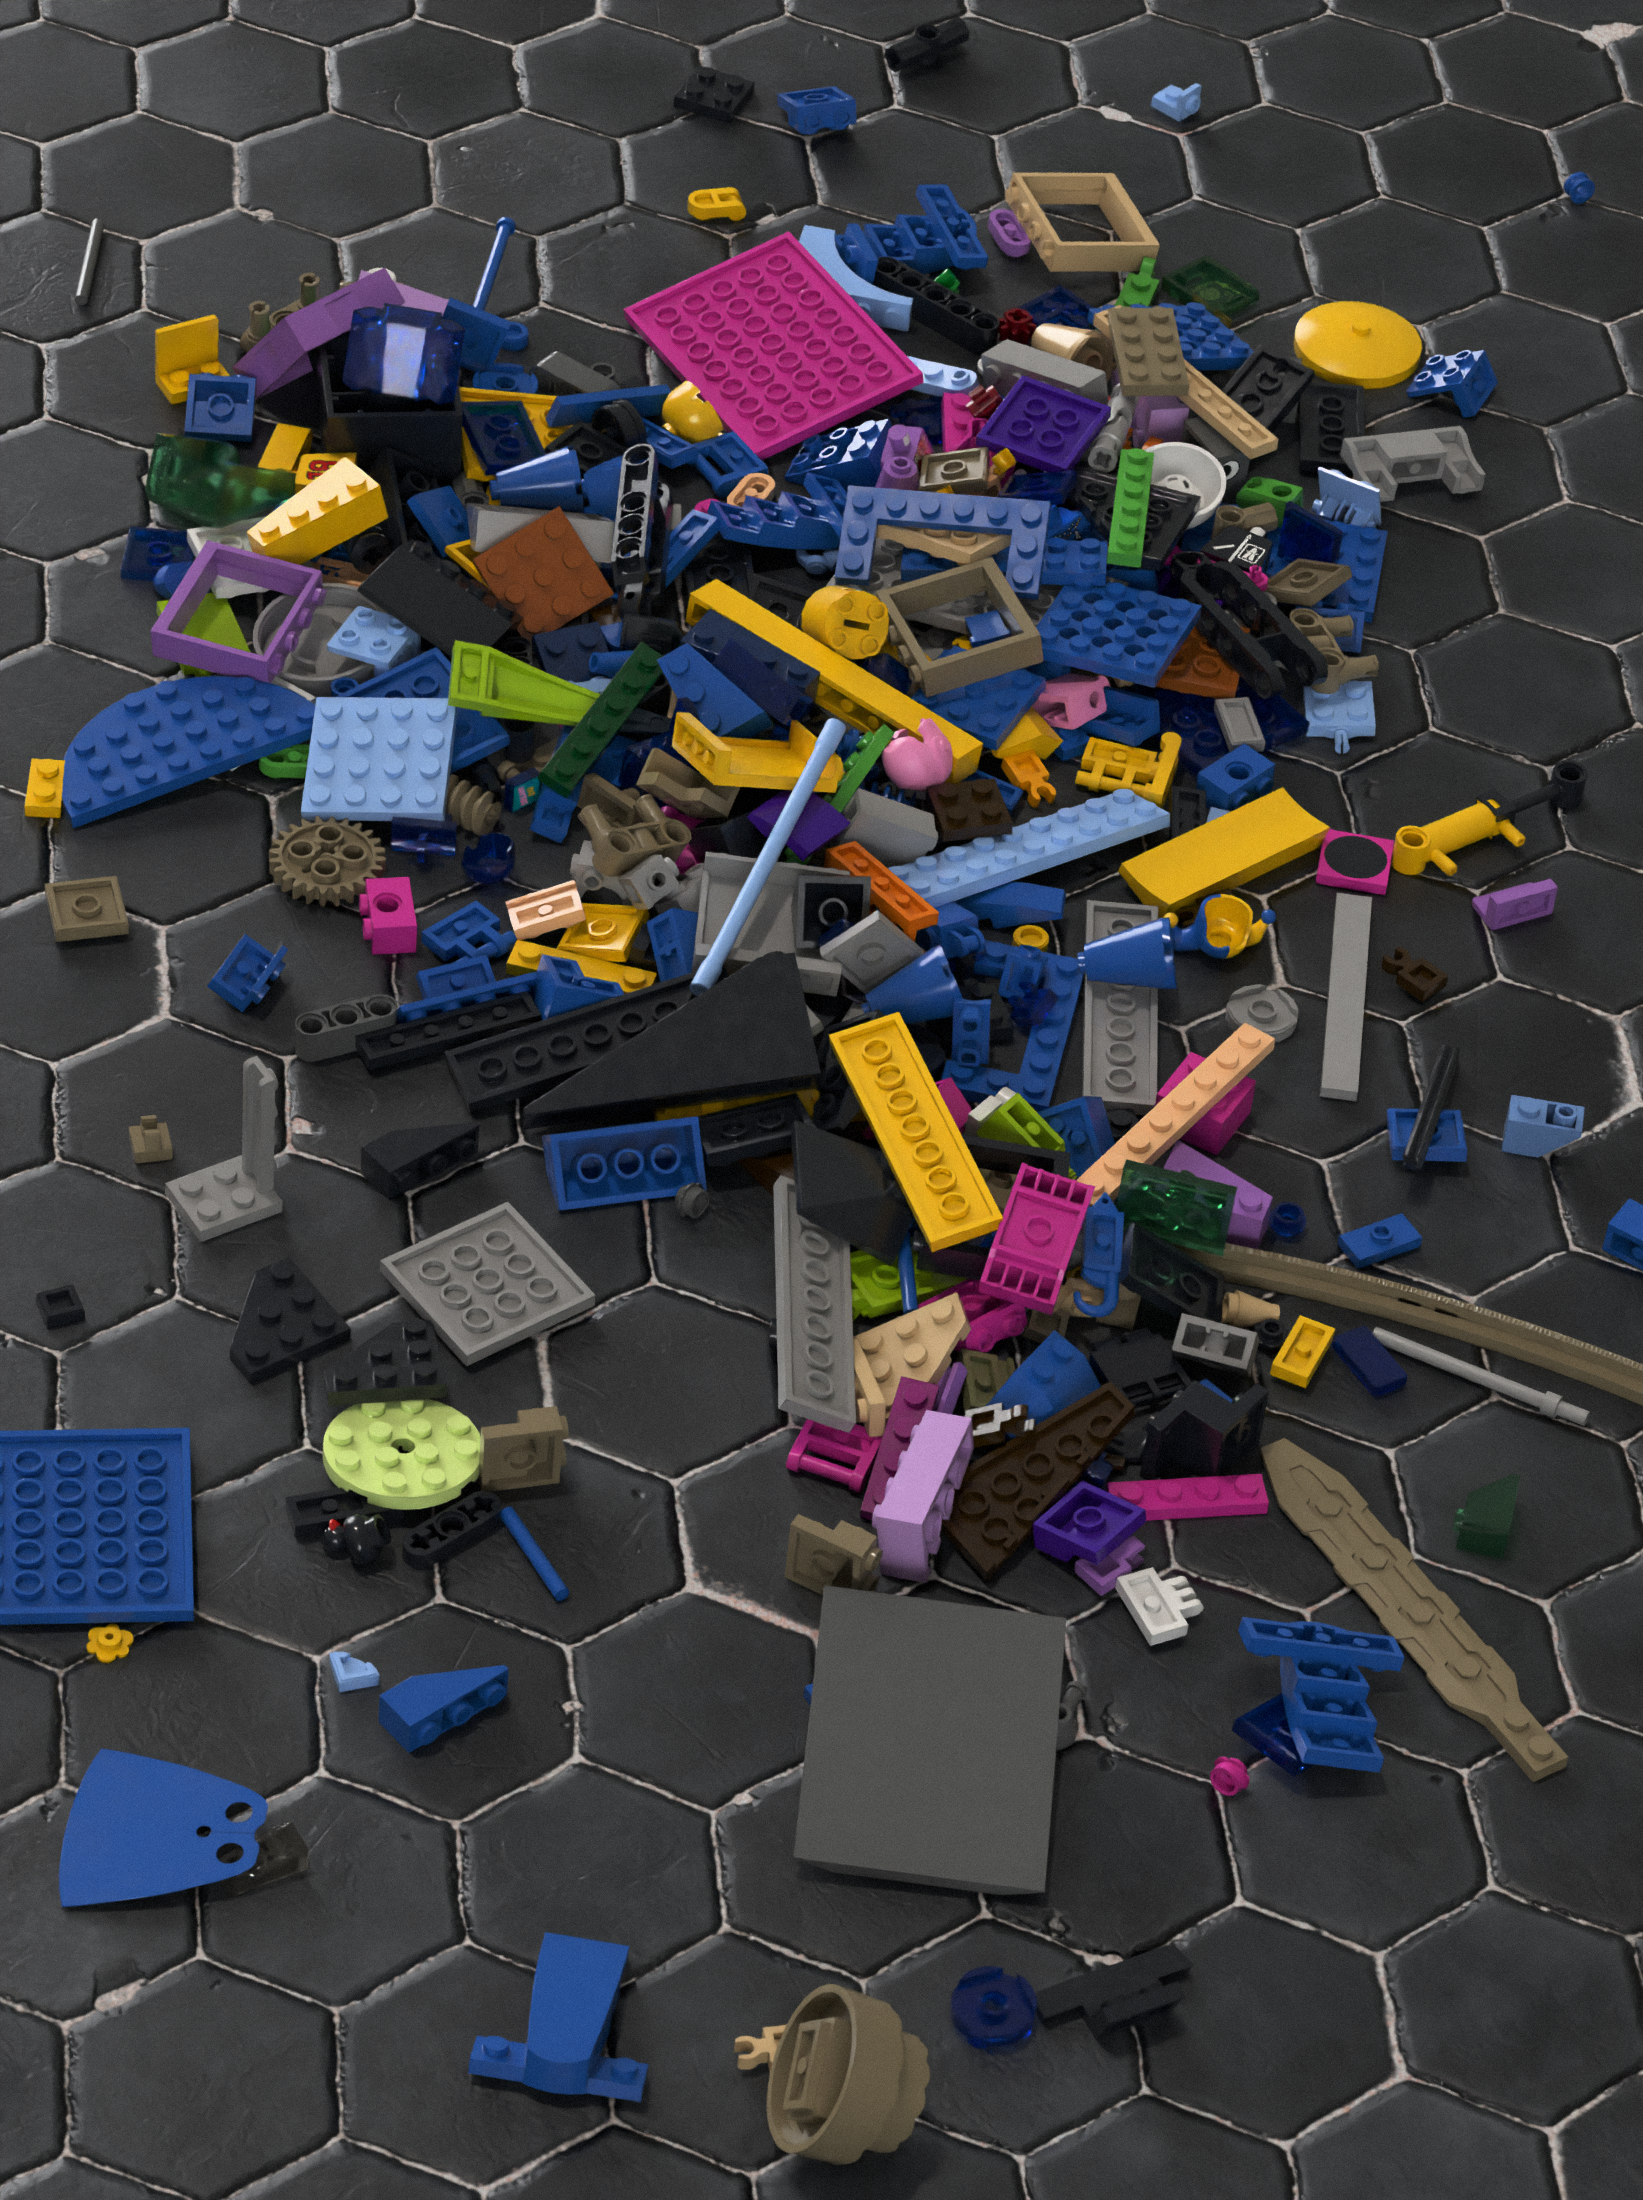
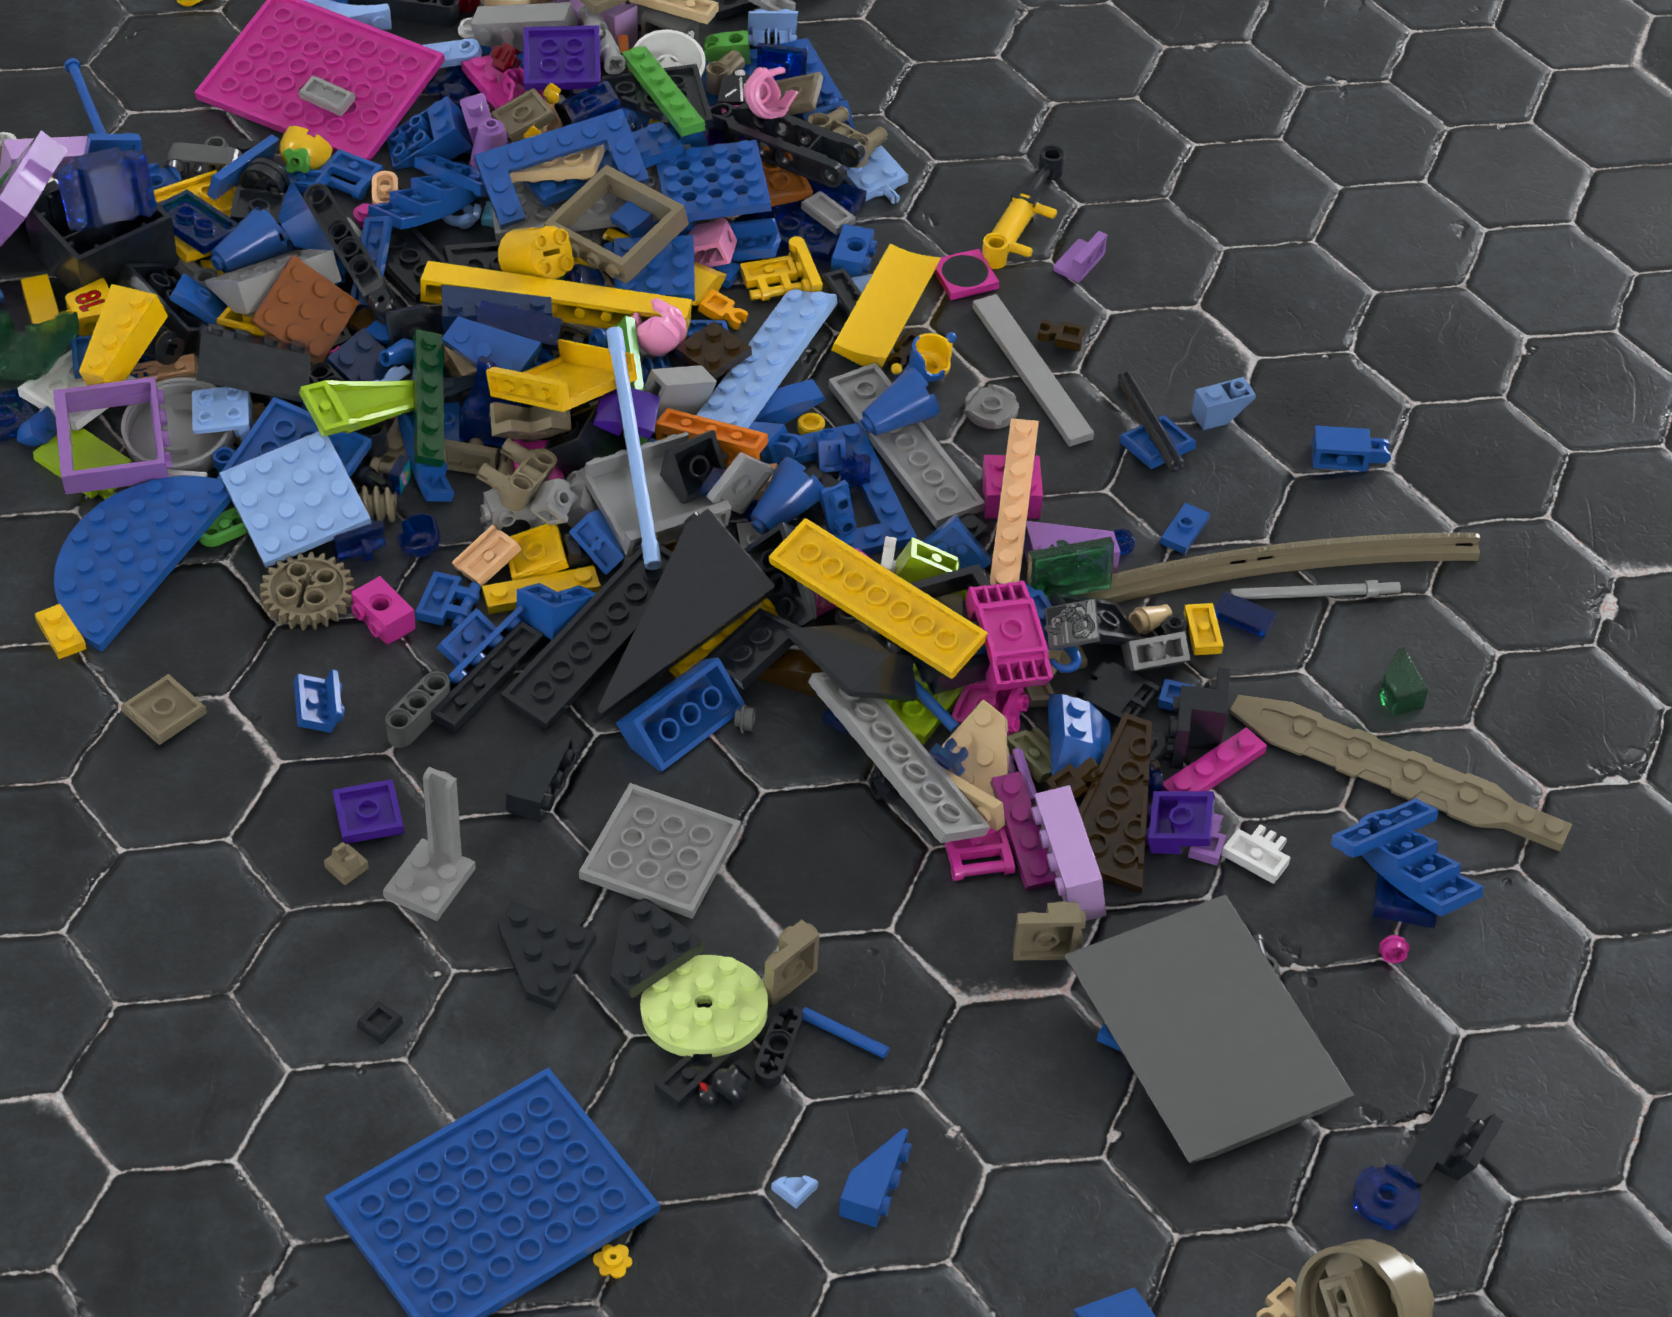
camera: 30 degrees left, 5 degrees up
(207, 1102) = (368, 811): none -> dark purple plate
(669, 421) = (300, 154): none -> bright green plate
(758, 367) = (327, 95): none -> light grey plate
(871, 1334) = (947, 759): none -> clear blue tile
(1123, 1262) = (1072, 624): none -> piece
(1244, 556) = (764, 94): none -> bright pink helmet

